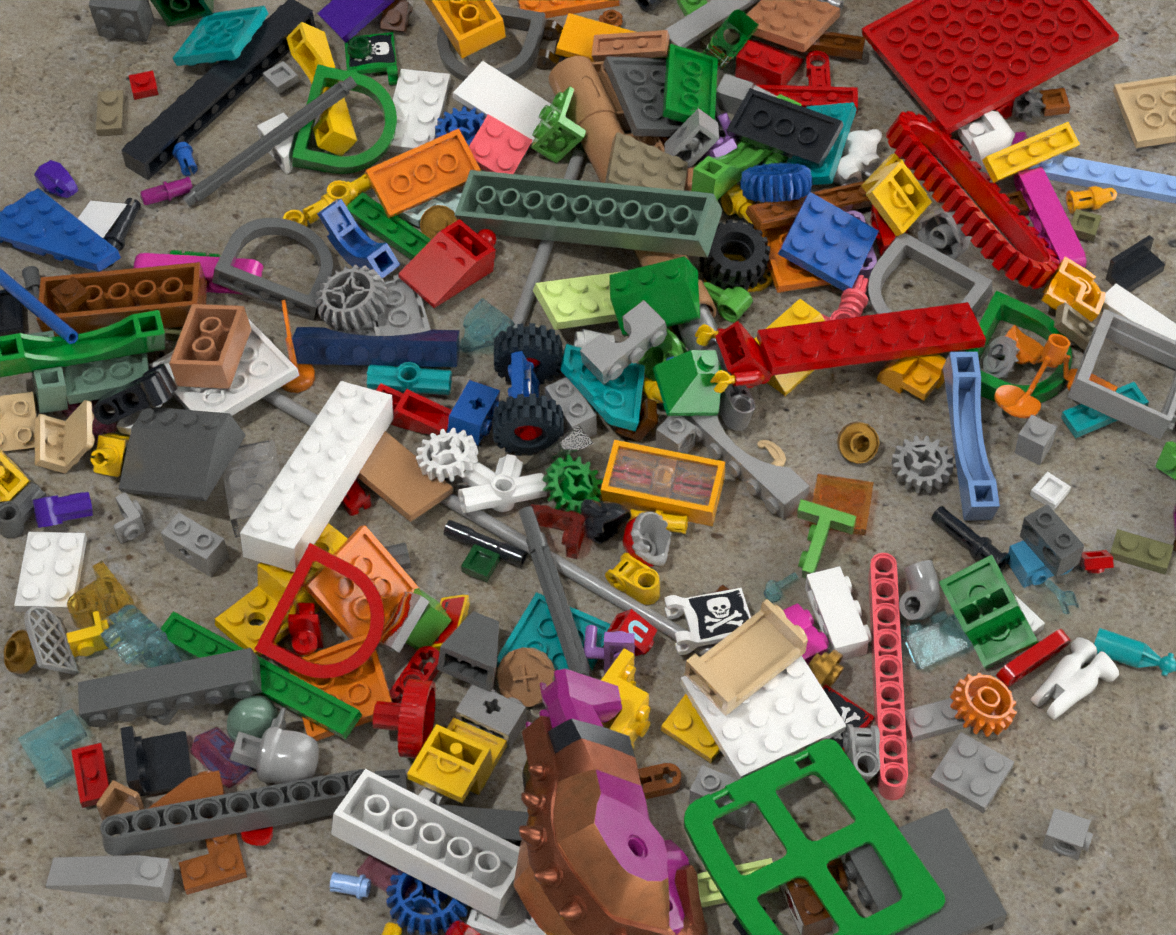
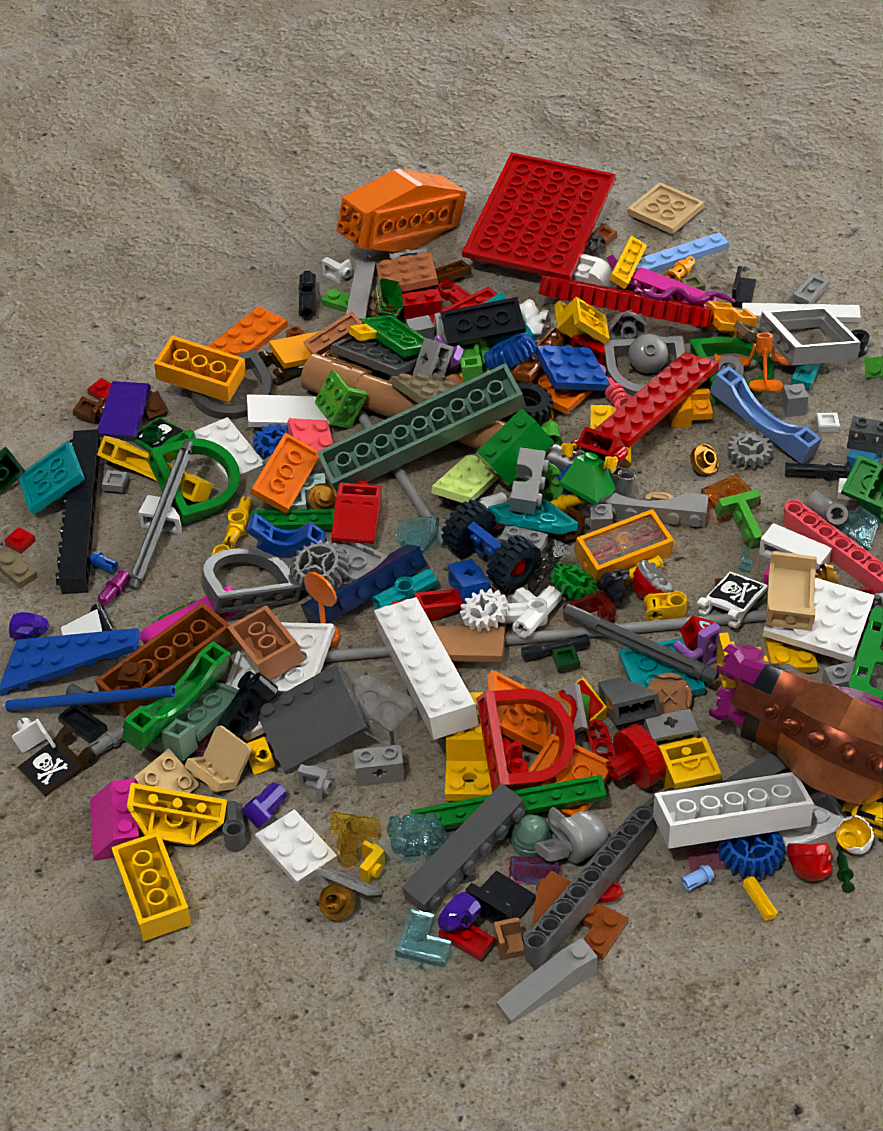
camera: 40 degrees left, 10 degrees down
(95, 747) = (459, 913): none -> dark purple rock
(655, 61) = (362, 332): none -> yellow plate
(934, 277) = (648, 353): none -> light grey cylinder
(1049, 229) = (685, 294): none -> magenta animal

